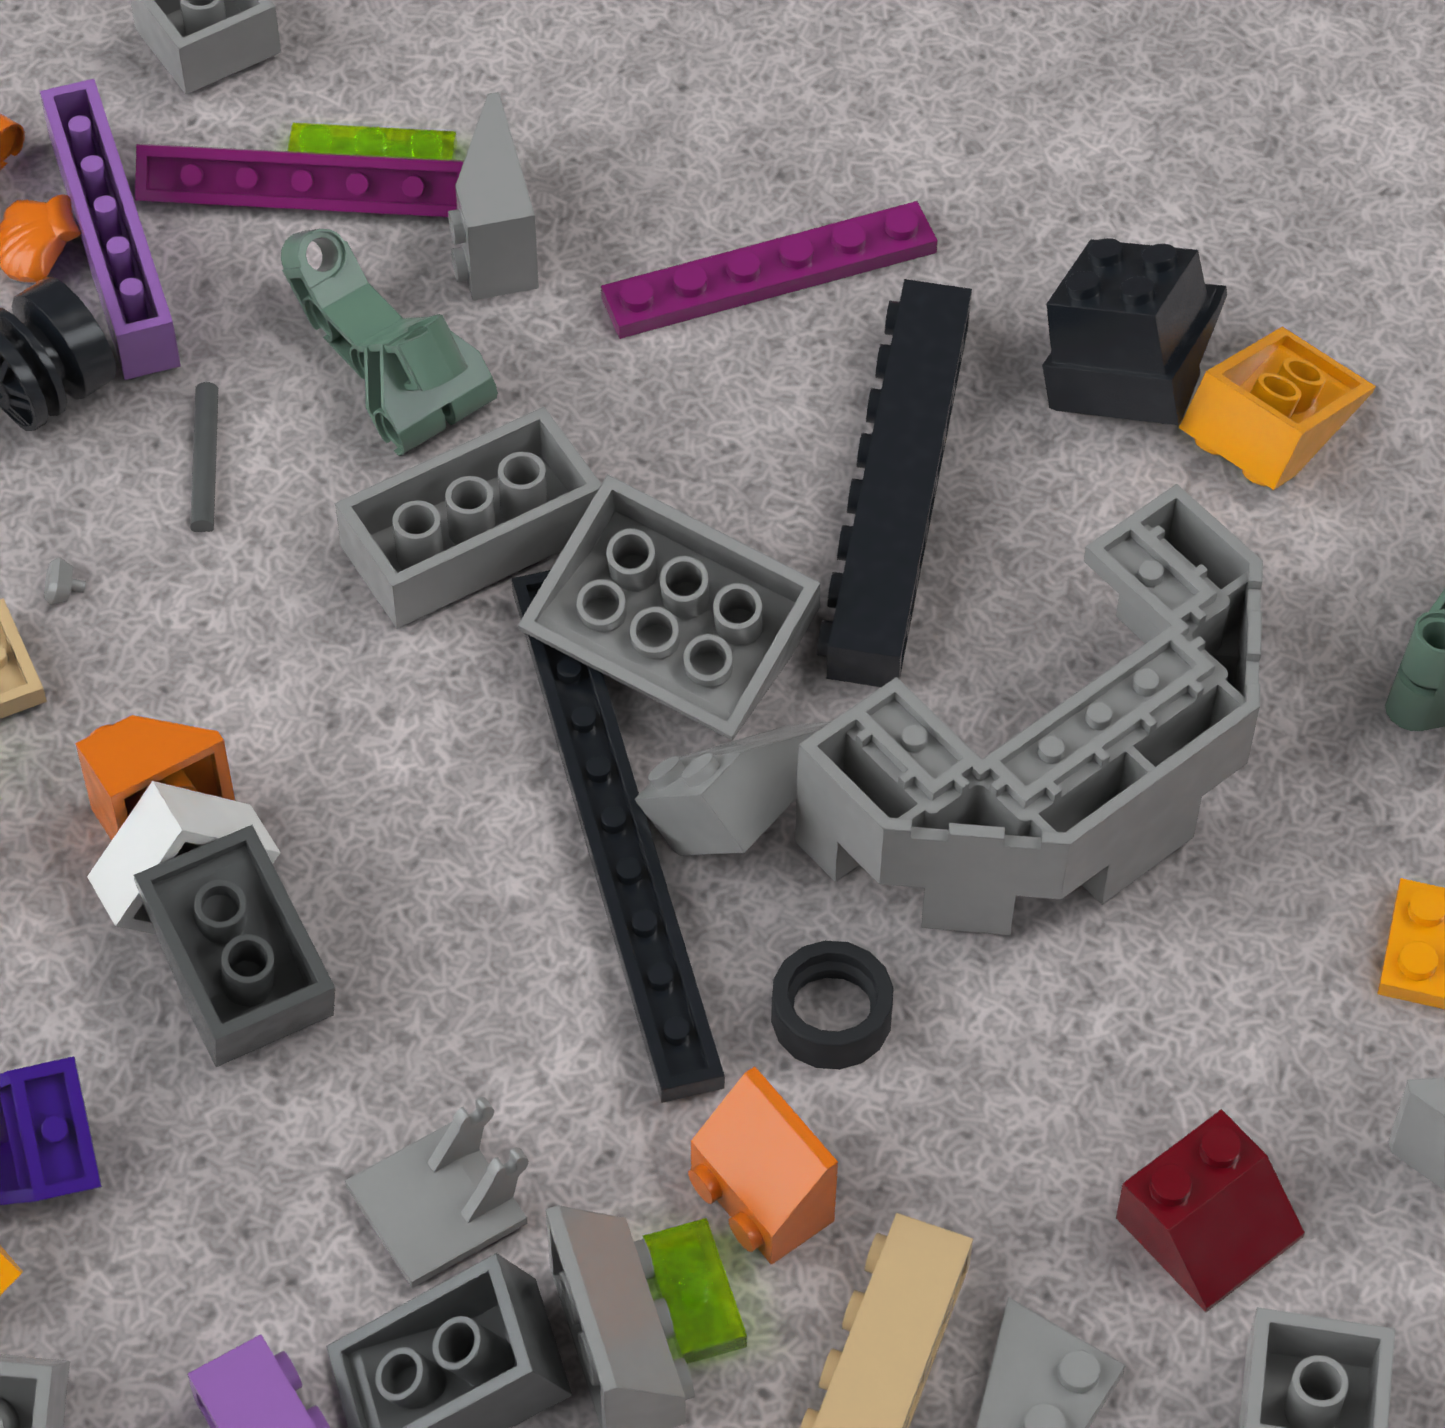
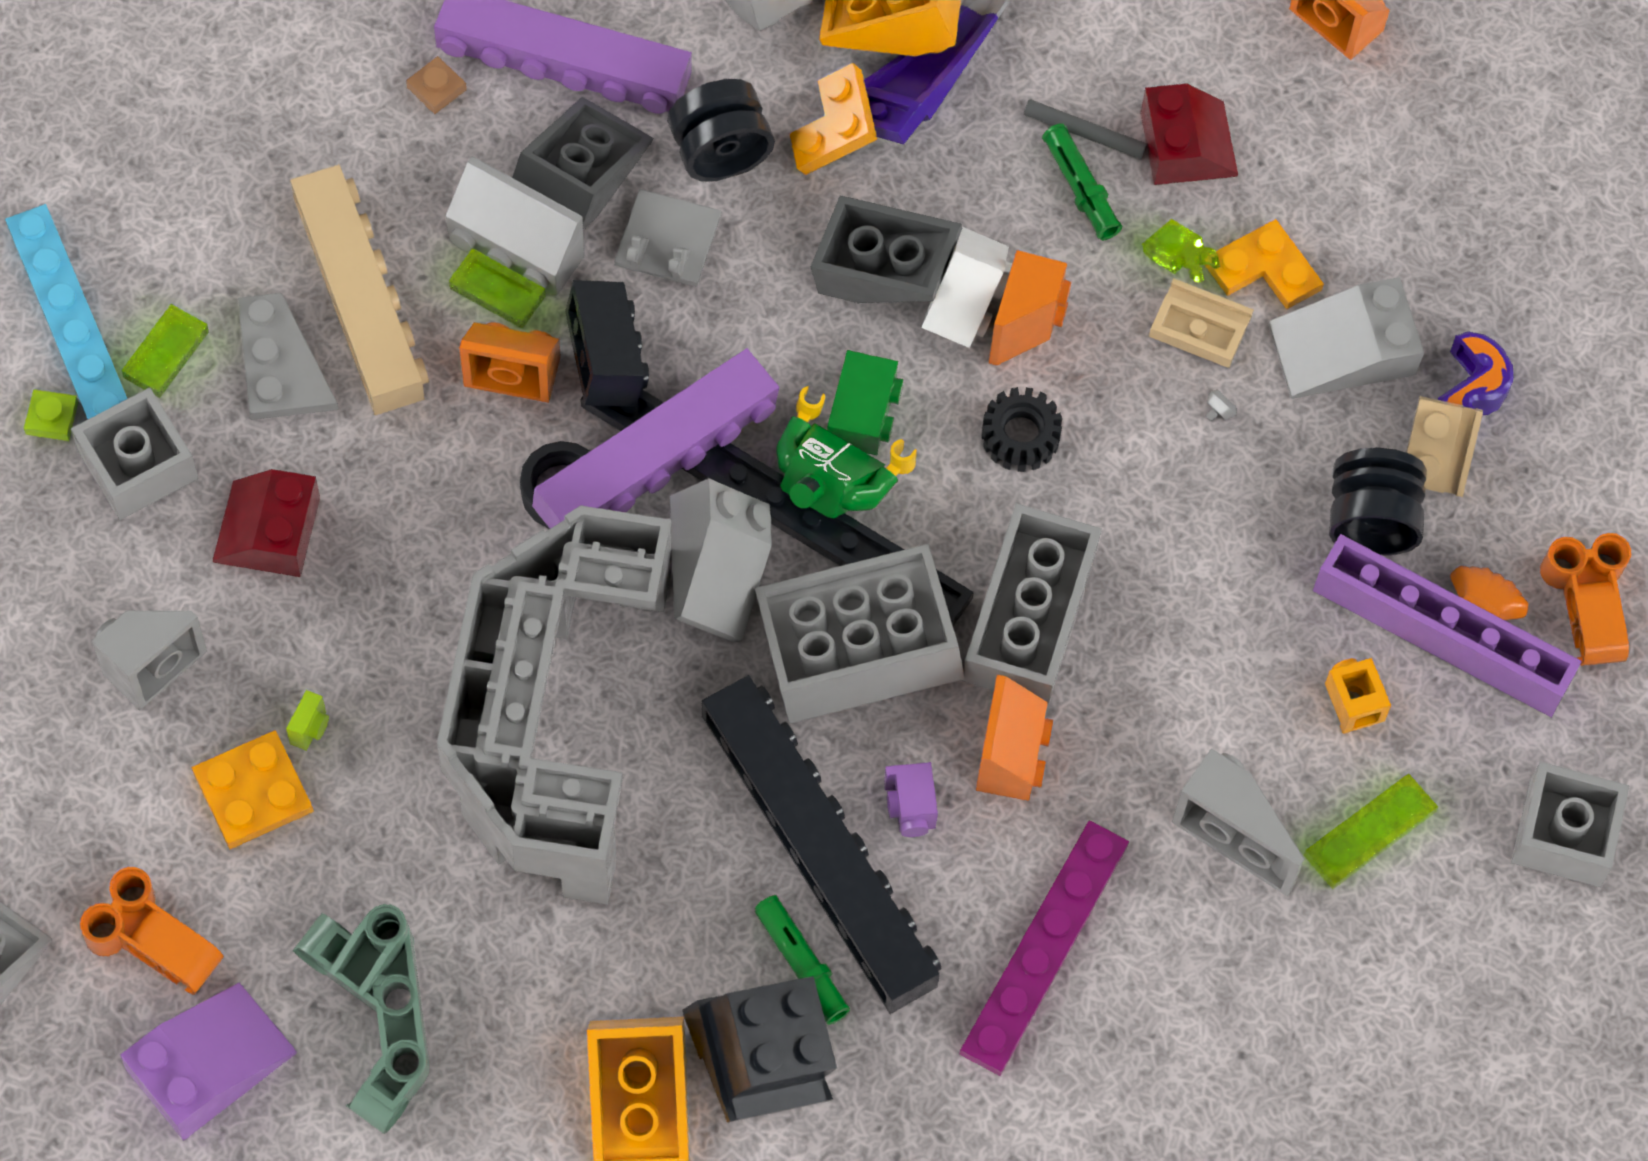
camera: 135 degrees right, 10 degrees up
(107, 1143) = (844, 127): none -> light orange plate
(204, 457) = (1232, 544): dark grey bar -> none
(249, 252) = (1363, 679): none -> light orange brick
(259, 1238) = (720, 130): none -> black wheel
(282, 670) = (1028, 407): none -> black tyre
(296, 180) = (1387, 761): magenta plate -> none
(411, 366) = (1170, 674): sand green connector -> none
(420, 842) = (864, 399): none -> green brick
(535, 779) = (829, 471): none -> green torso
(633, 419) = (1013, 741): none -> orange slope
(644, 1094) = (606, 343): none -> black brick
(703, 925) = (662, 441): none -> medium lavender brick
(768, 451) = (911, 798): none -> medium lavender brick
(1016, 387) = (801, 957): none -> green pin
(1339, 960) = (308, 721): none -> lime plate

